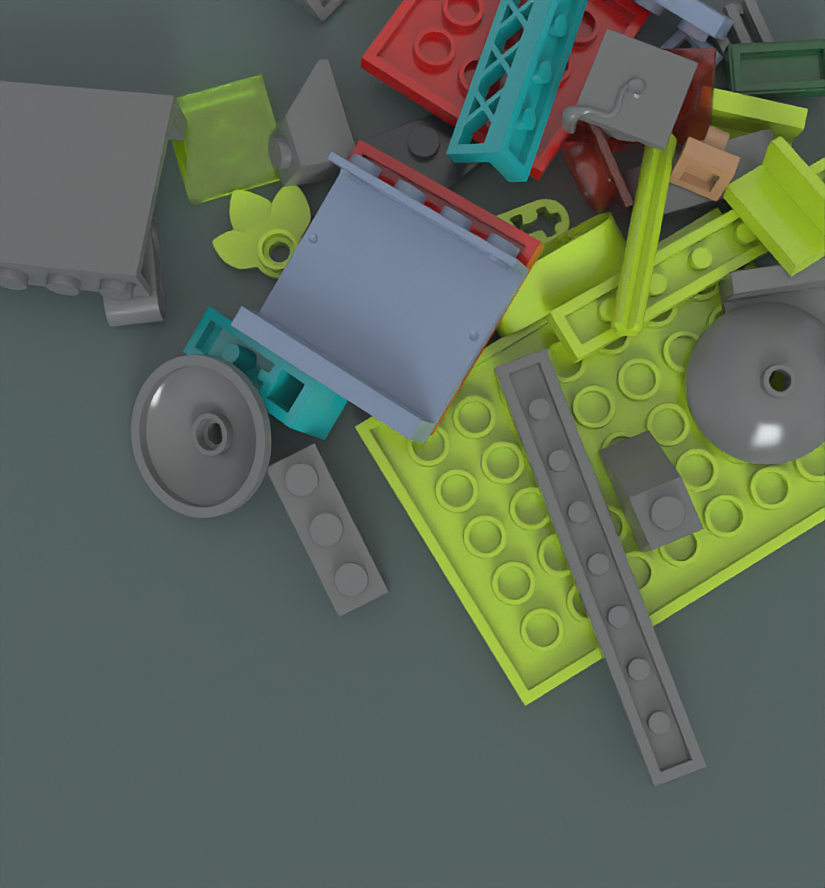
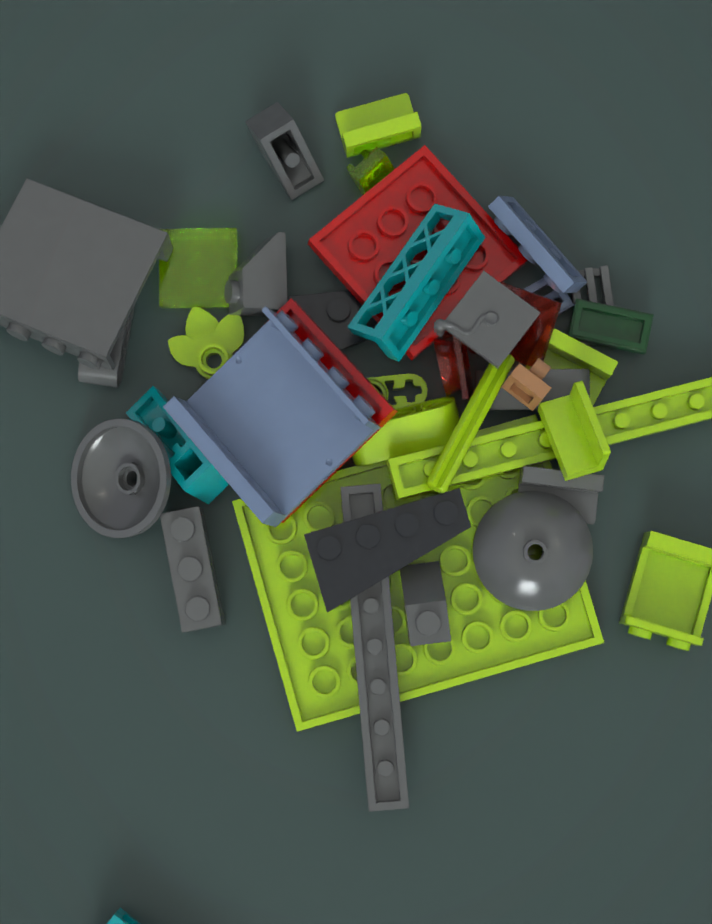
camera: 20 degrees right, 0 degrees up
(563, 433) = (373, 547): none -> black wing

